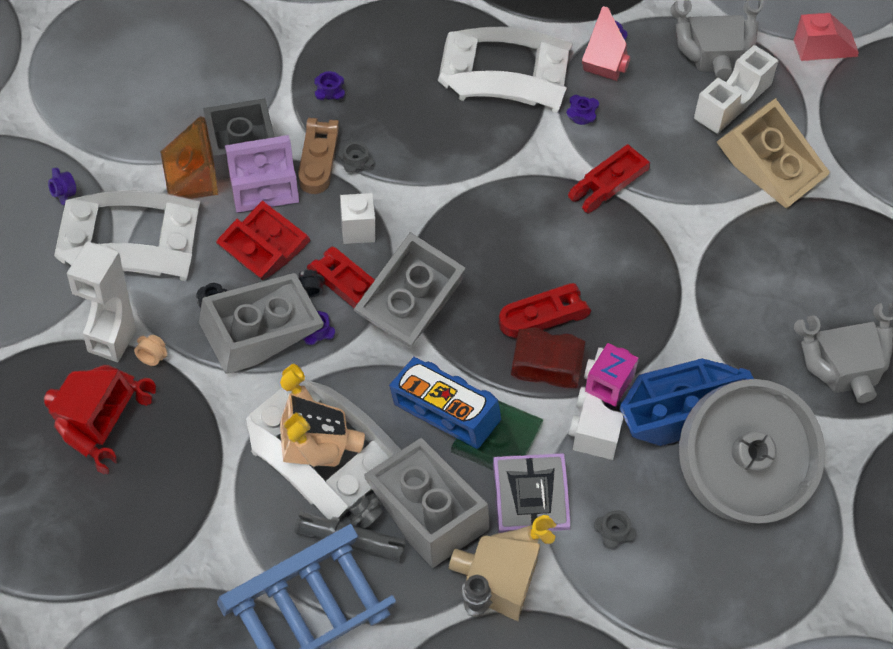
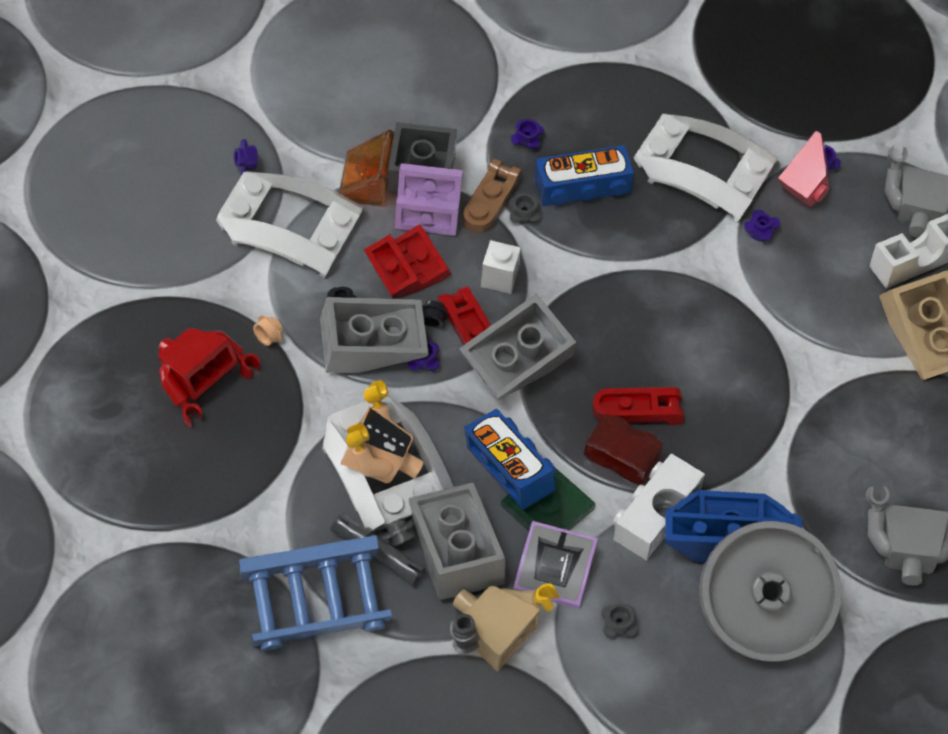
camera: 20 degrees right, 0 degrees up
(100, 278) = (237, 252): white arch -> none
(399, 109) = (583, 175): none -> brick
(610, 177) = (758, 299): red hinge -> none
(611, 374) = (669, 480): dark pink brick -> none

